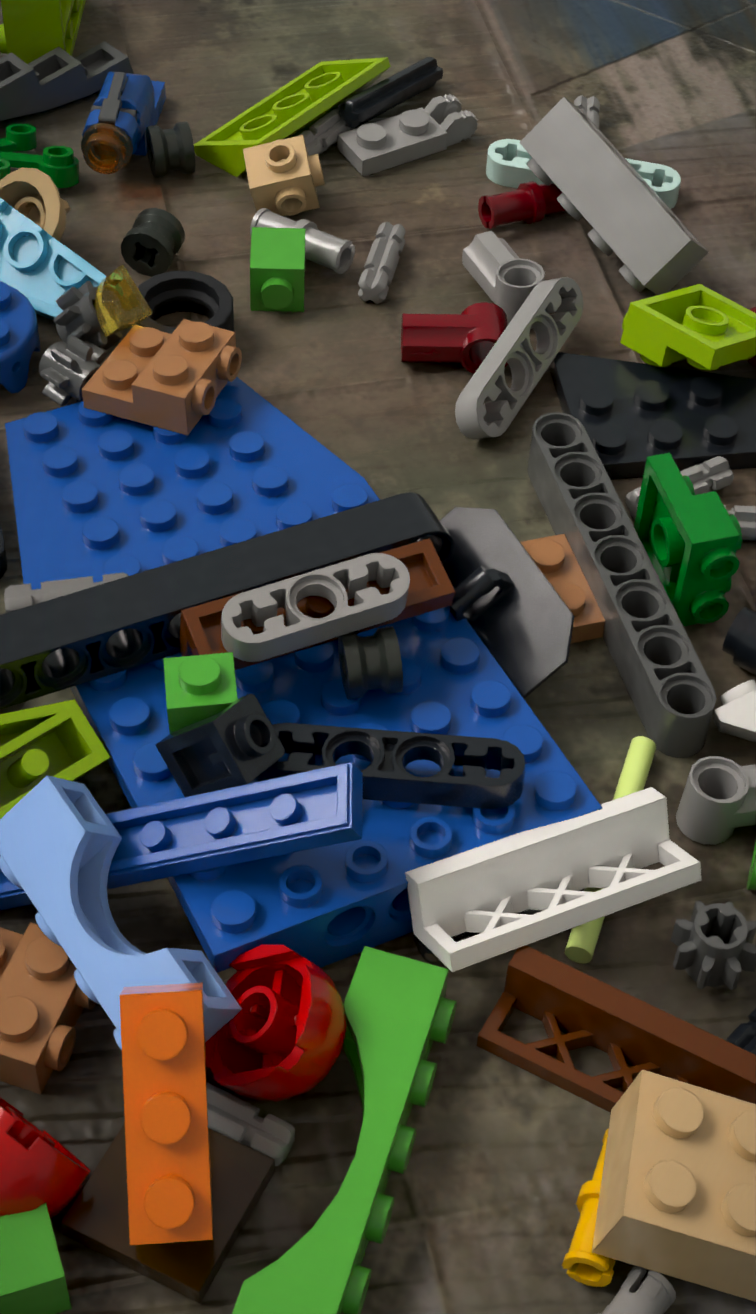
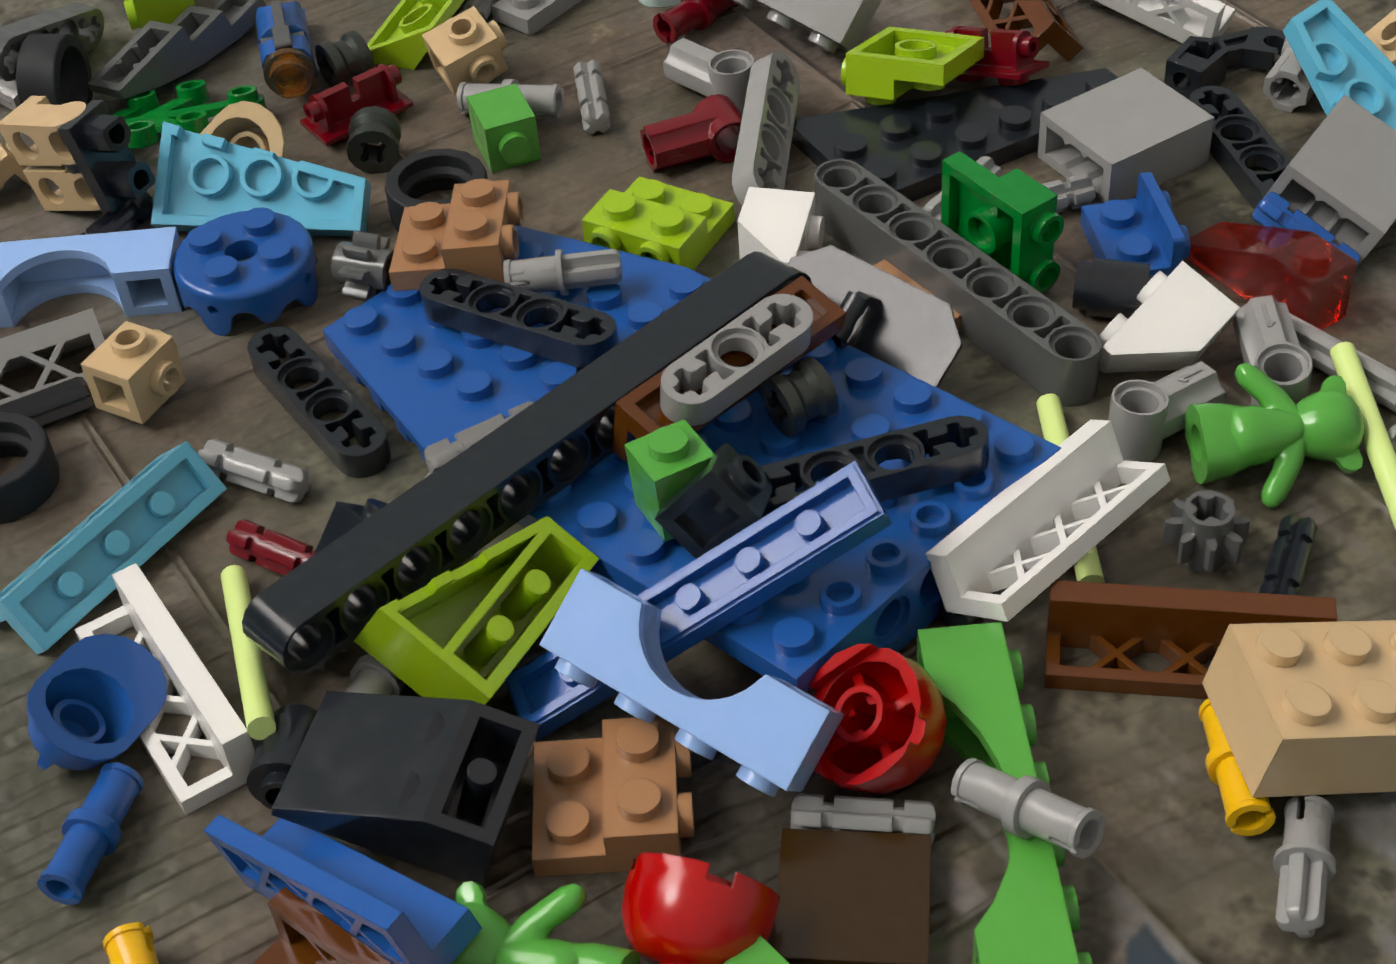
camera: 15 degrees left, 5 degrees down
(80, 317) = (358, 209): dark grey gear -> none
(119, 302) = (385, 188): clear yellow tile -> none
(166, 1114) = (861, 845): orange arch -> none
(179, 194) = (331, 110): none -> dark red hinge
(181, 473) = (461, 298): none -> black beam
(235, 445) = (564, 271): none -> light grey axle
(354, 1179) = (1028, 807): none -> light grey pin
(369, 421) = (659, 222): none -> lime plate
(475, 467) = (779, 223): none -> white slope

